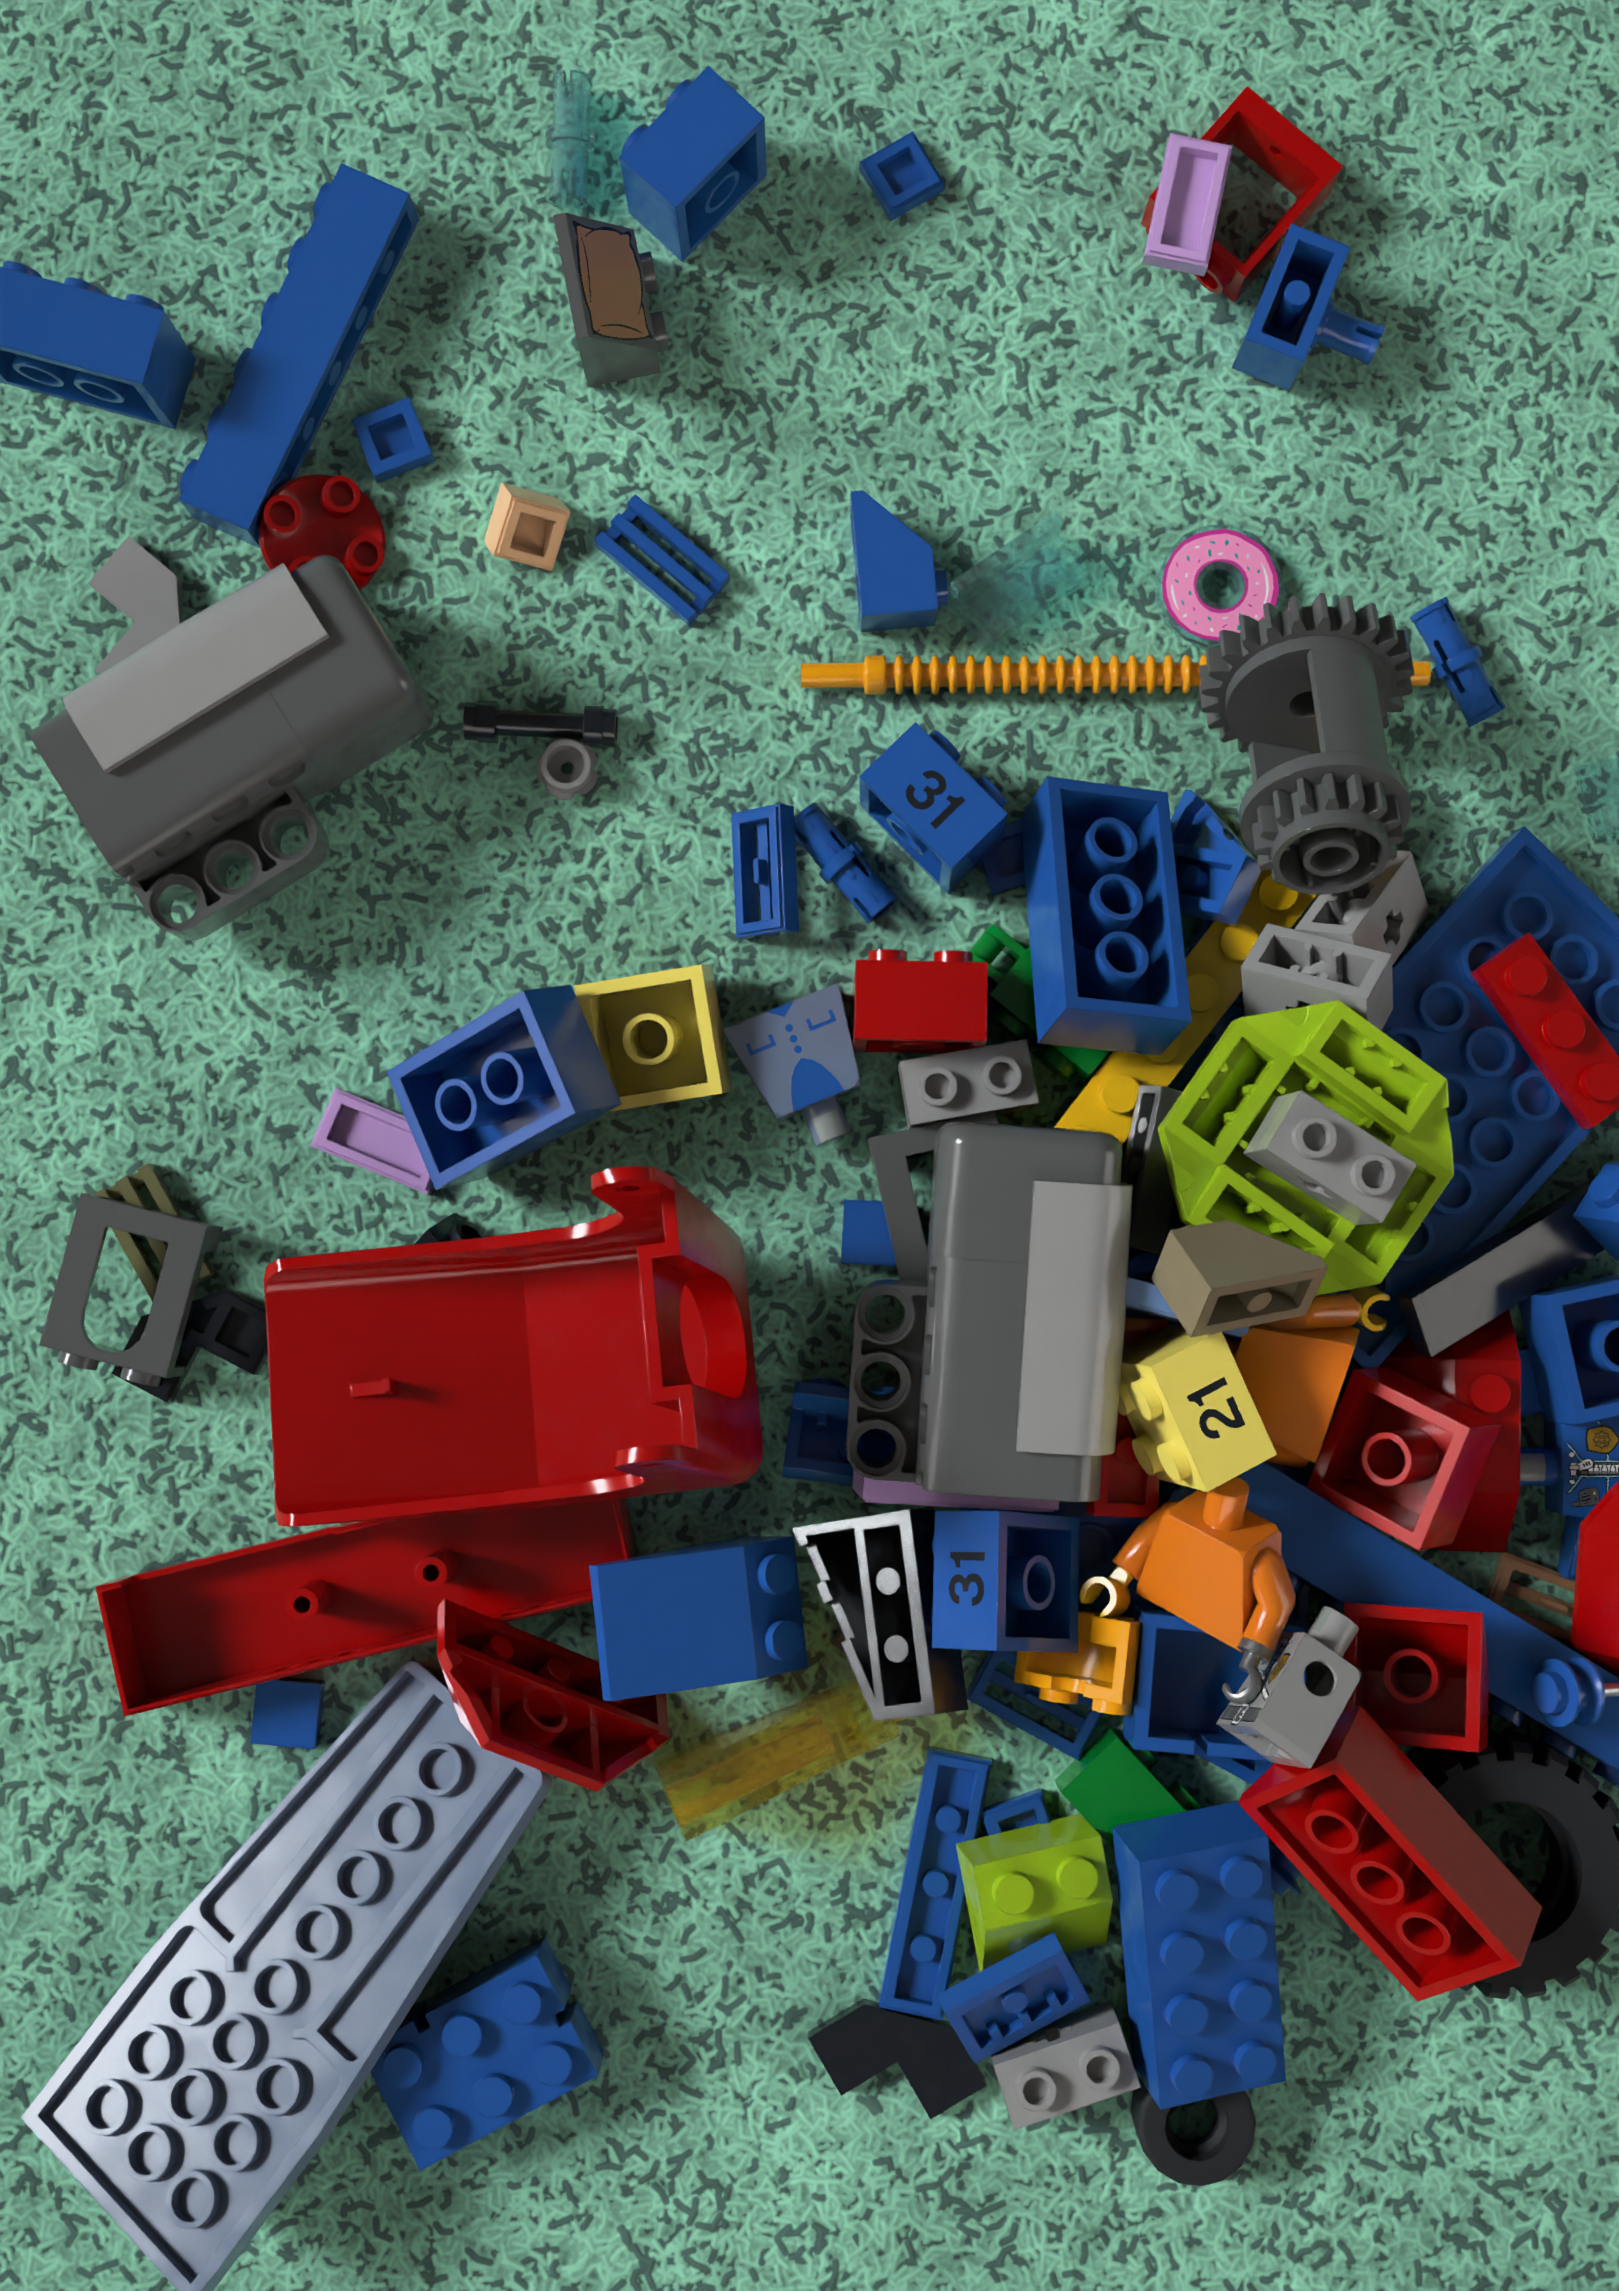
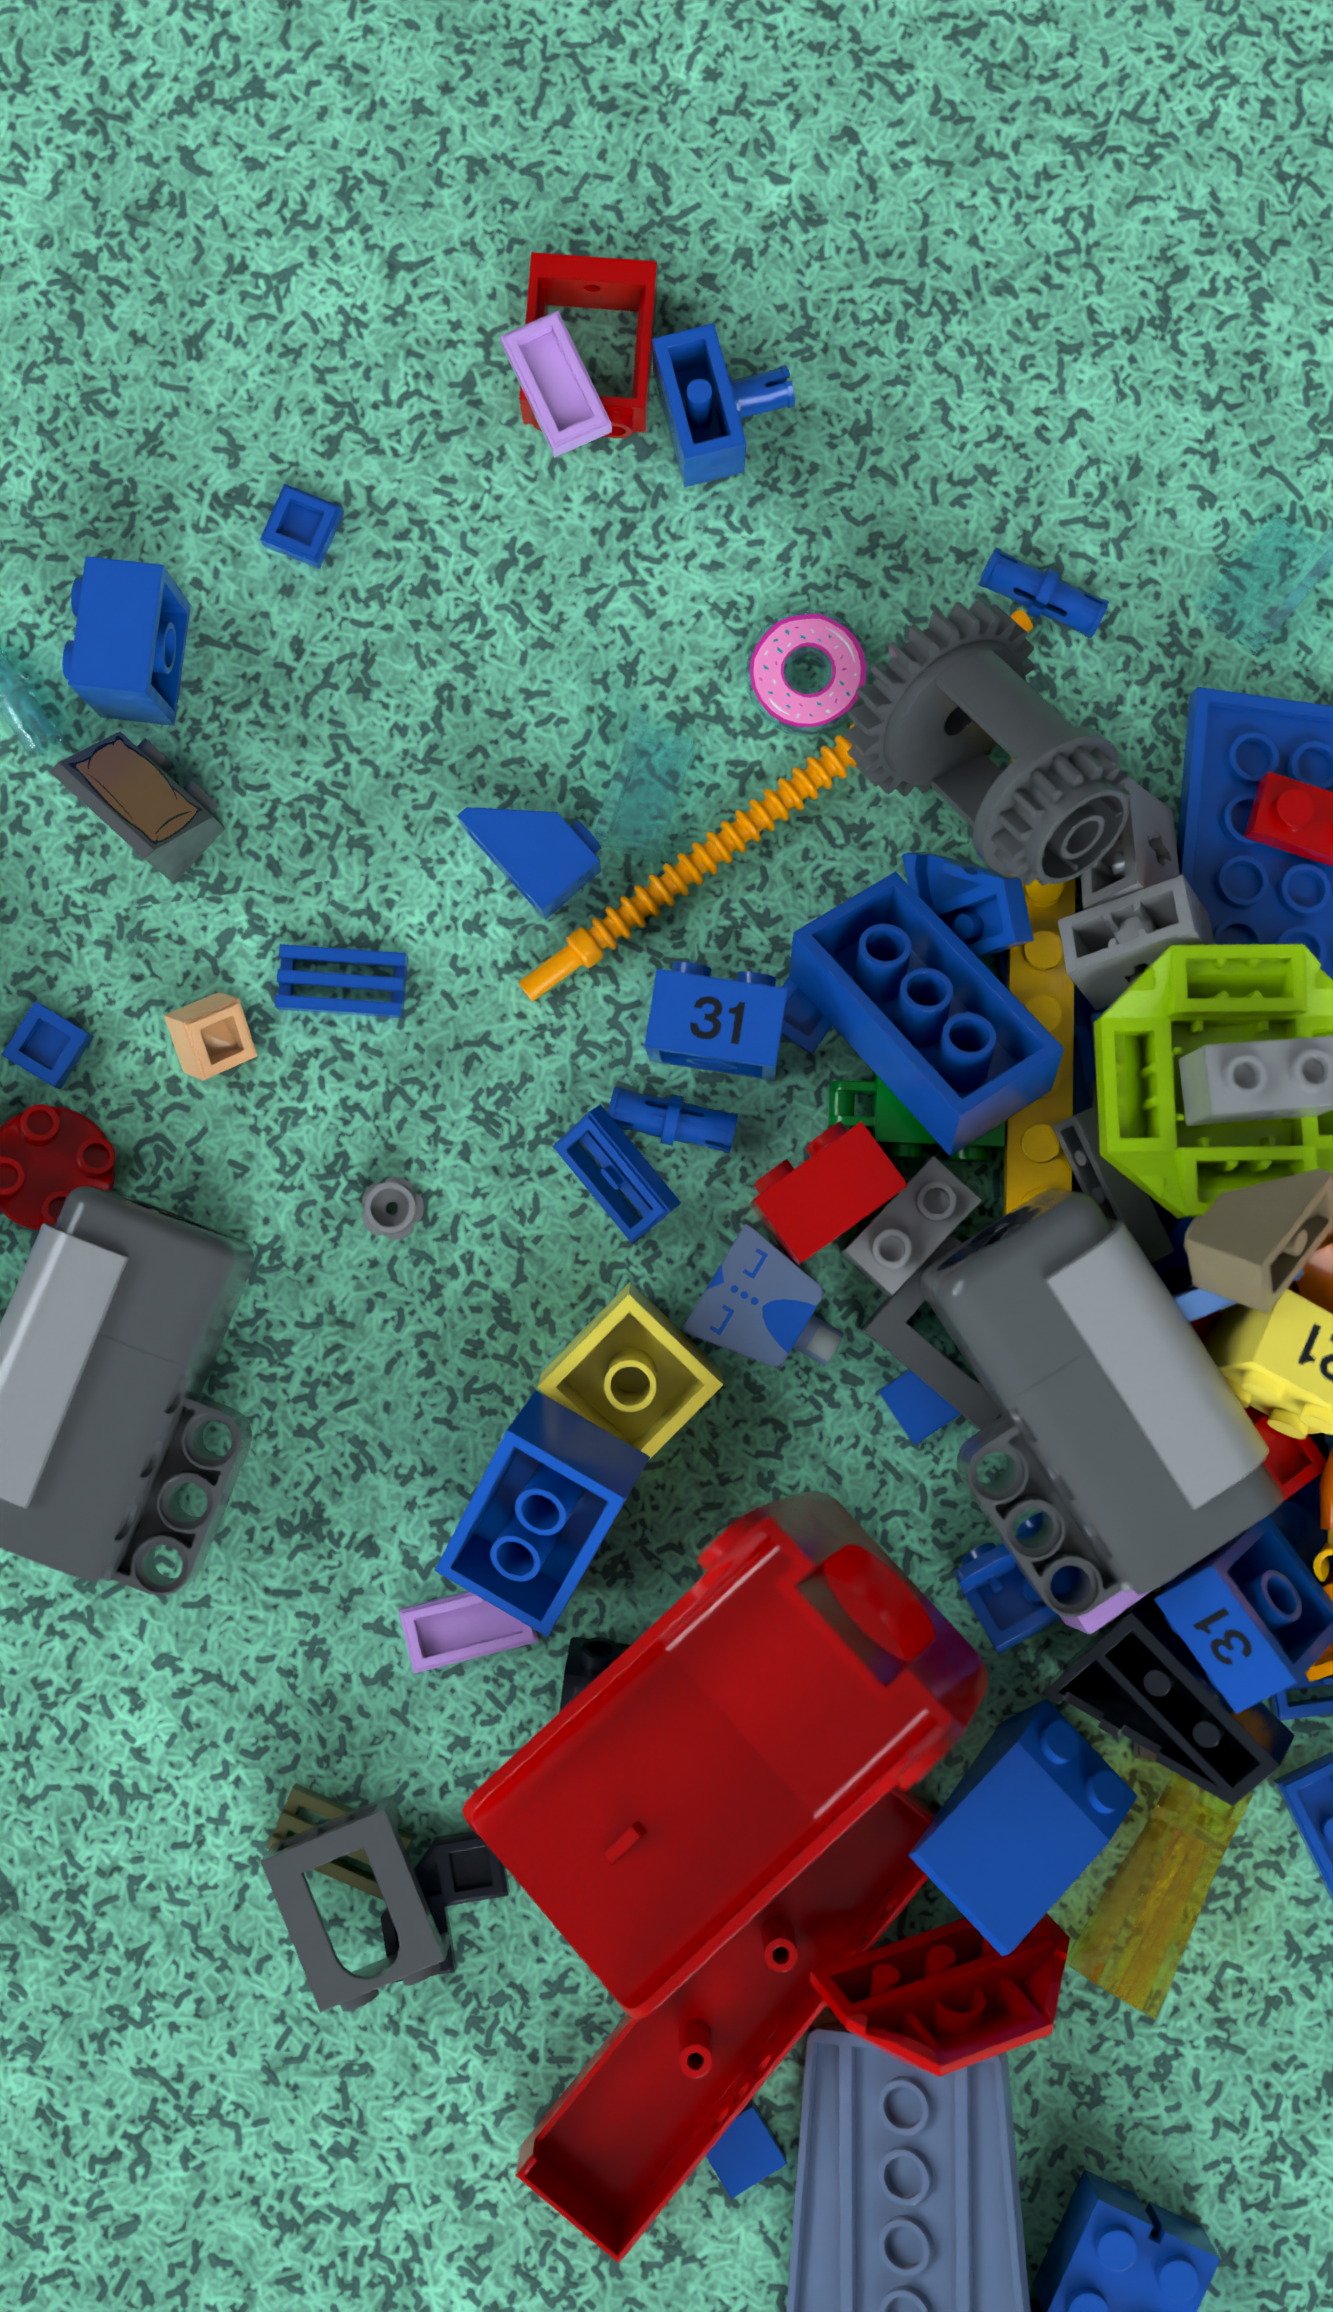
camera: 35 degrees left, 0 degrees up
(485, 722) = (298, 1219): black bar -> none

